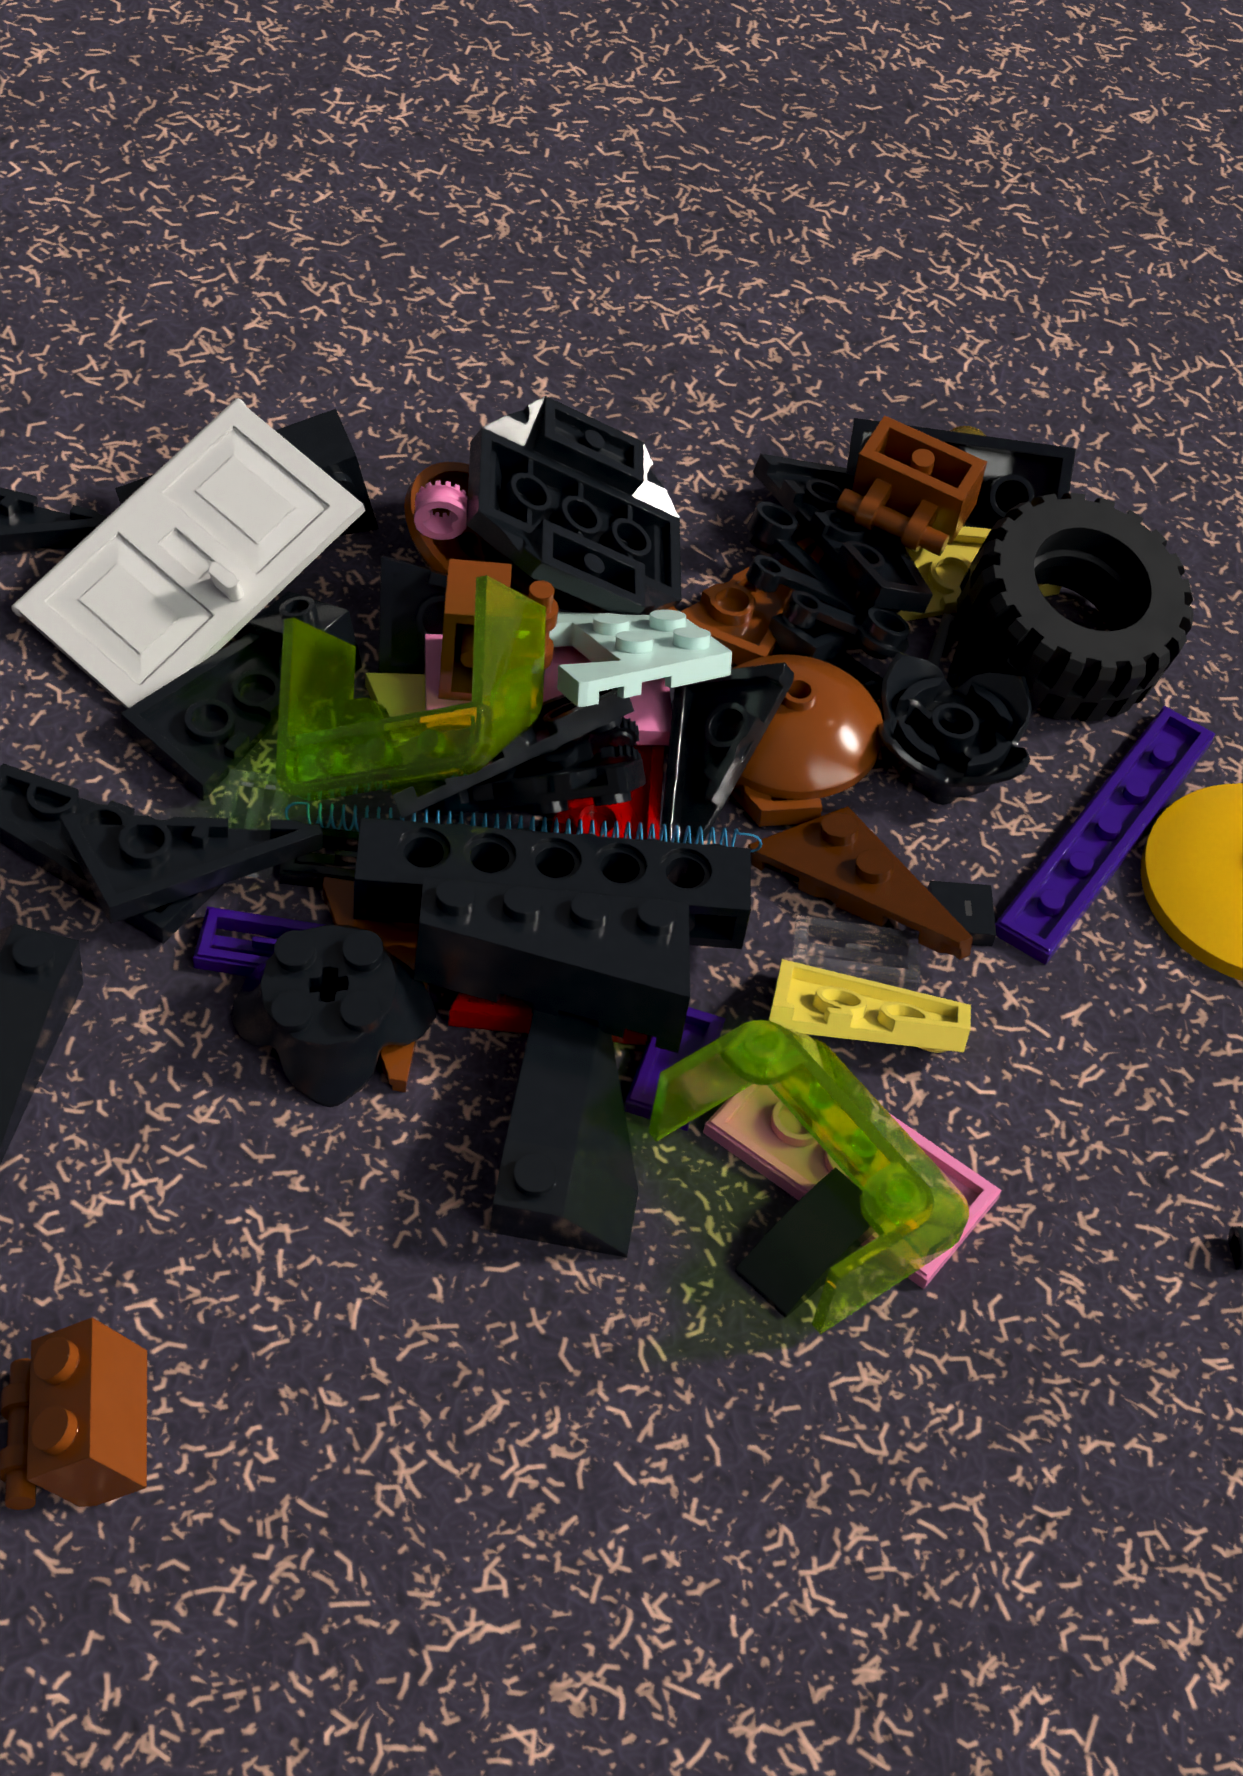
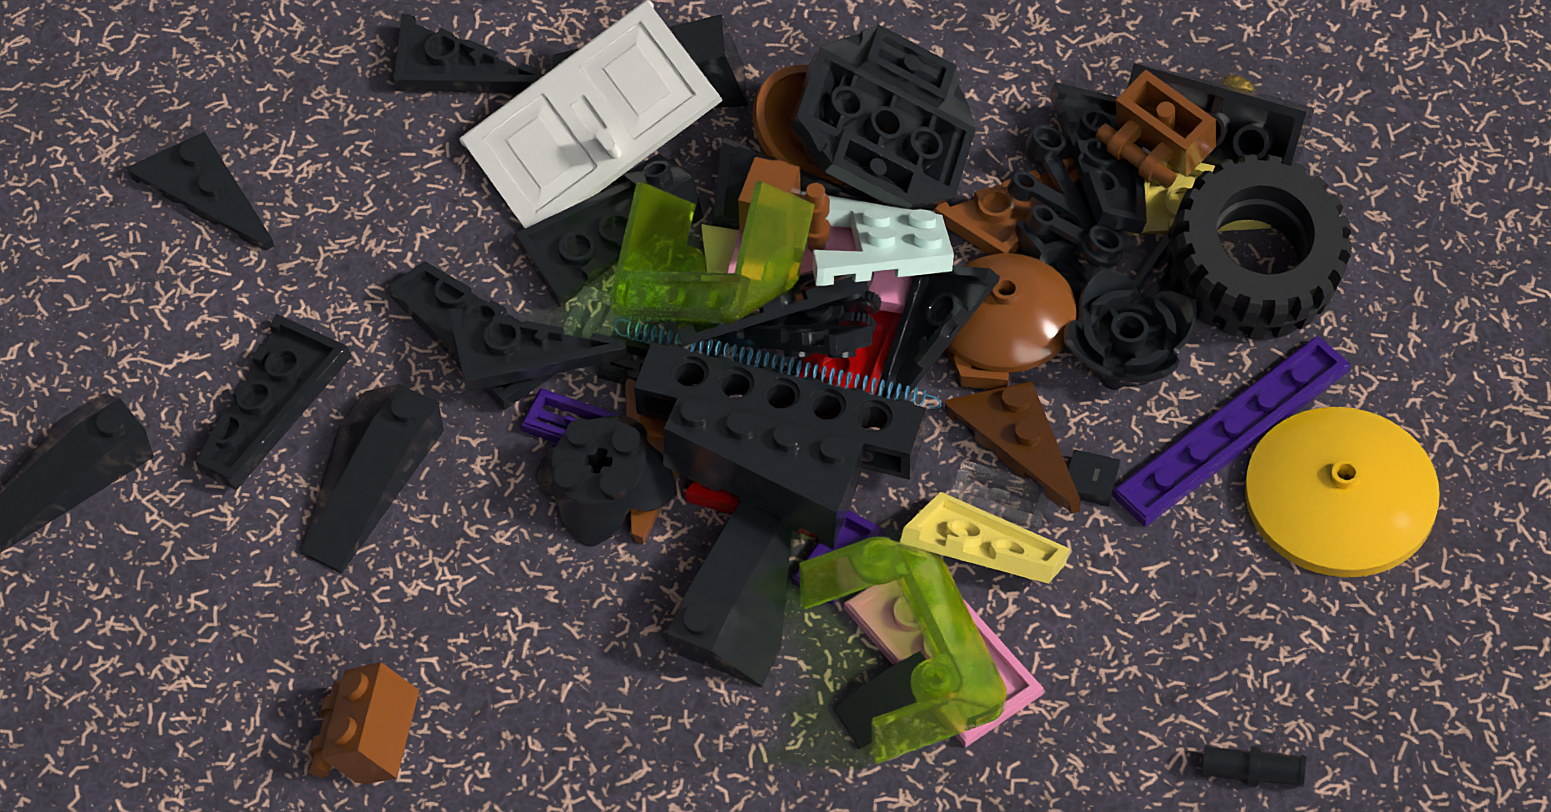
camera: 25 degrees right, 5 degrees up
(441, 497) = (778, 101): bright pink bush -> none

